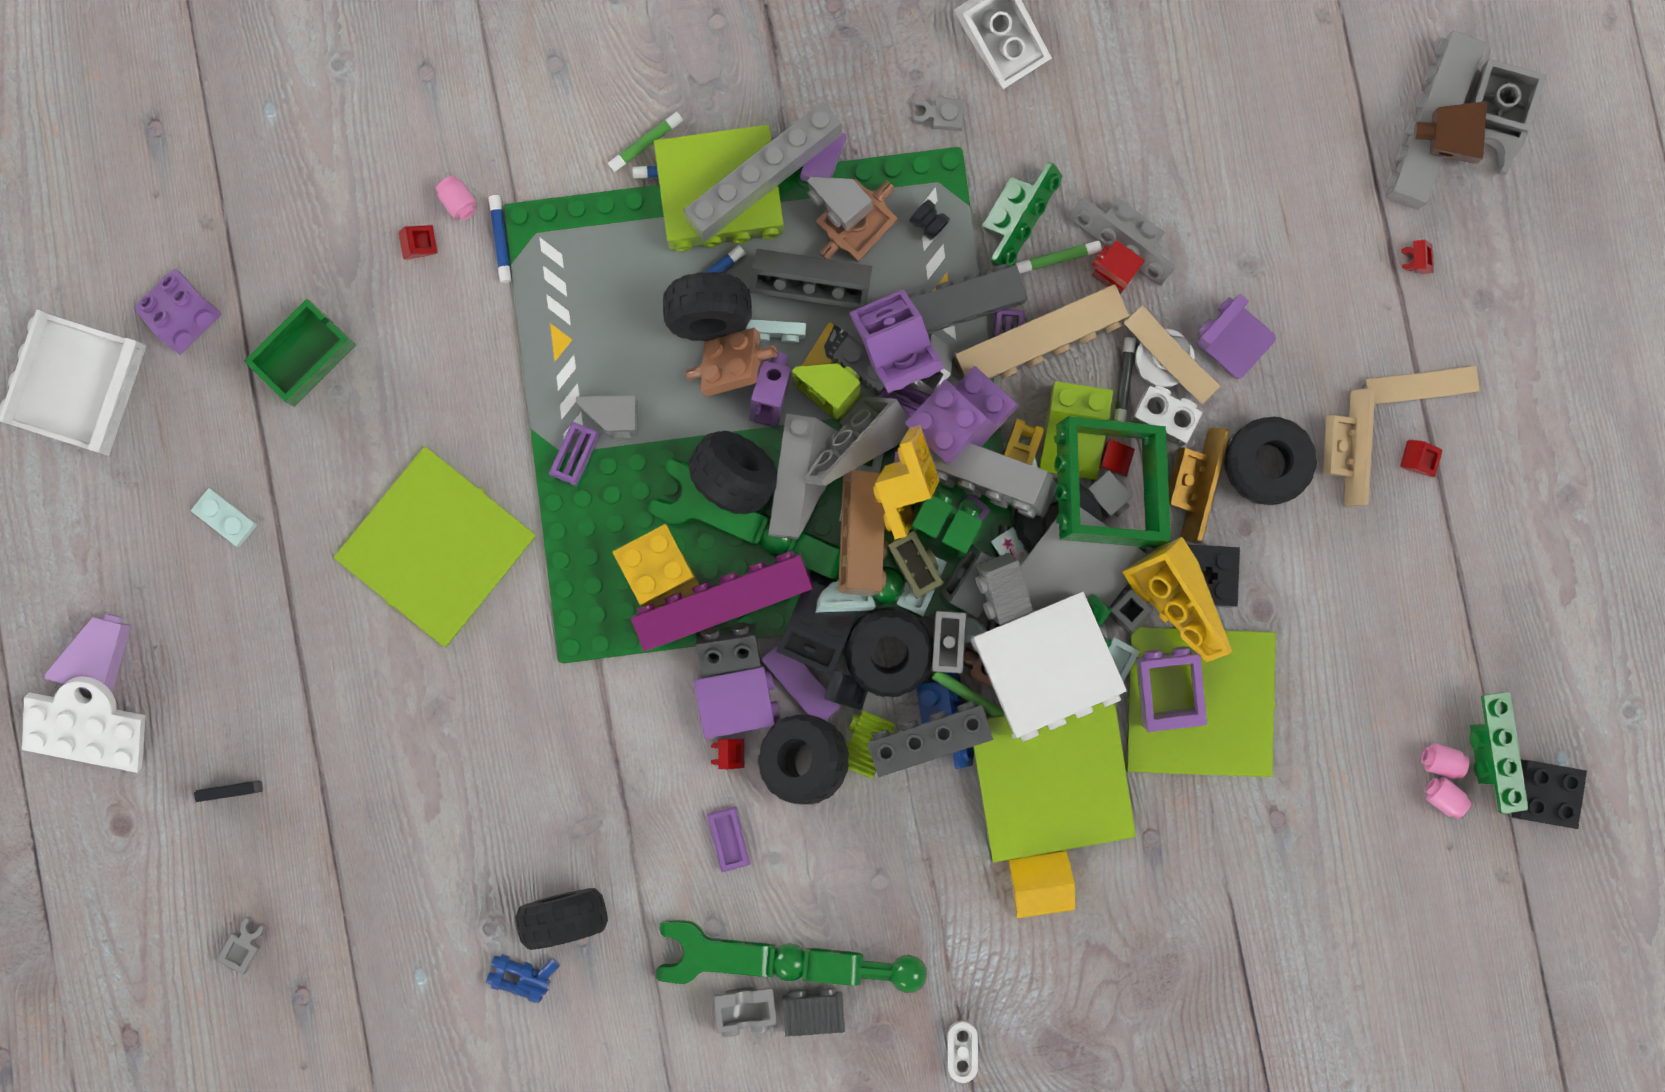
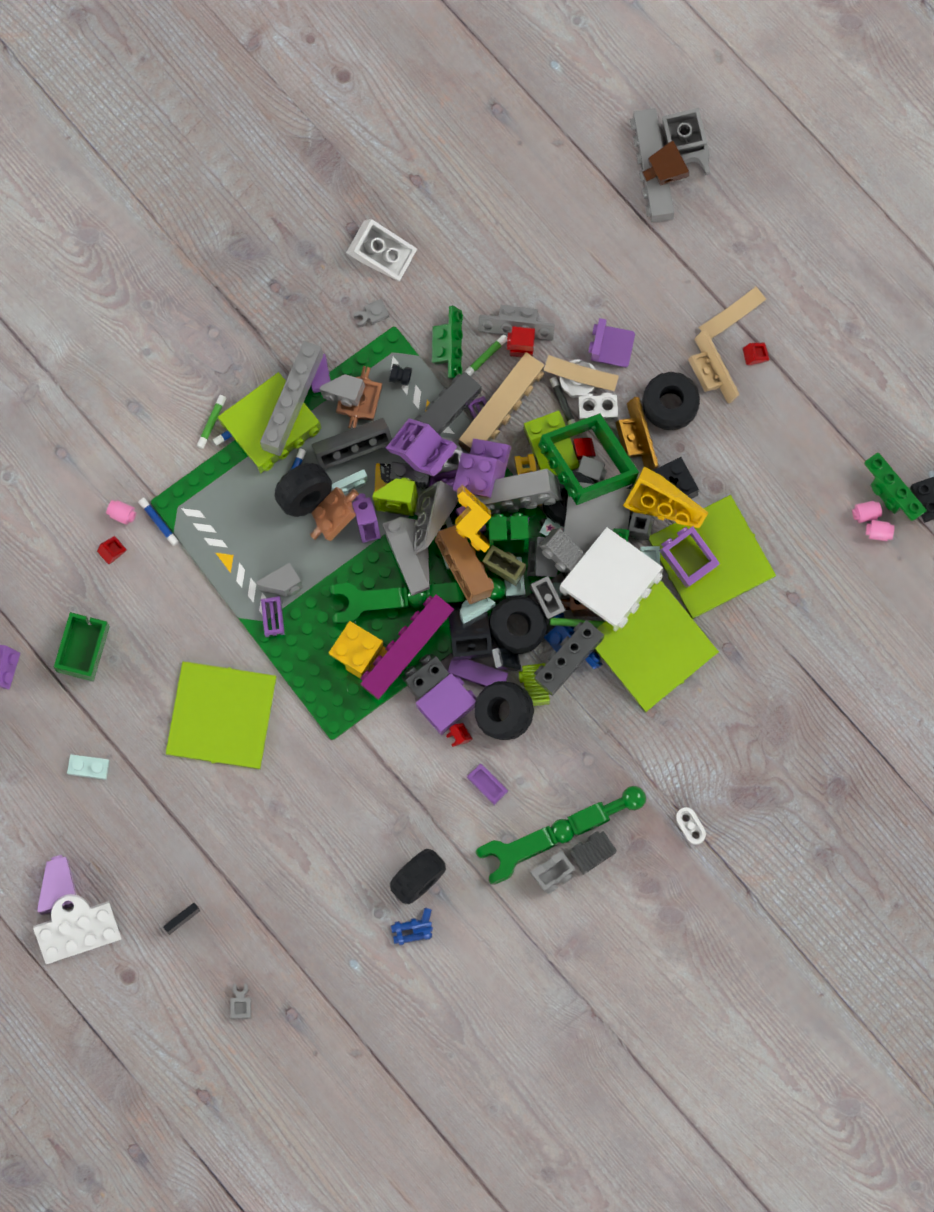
camera: 25 degrees left, 10 degrees down
(732, 472) = (371, 571): black tyre -> none
(1042, 884) = (681, 708): yellow slope -> none
(1422, 257) = (690, 242): red tile -> none

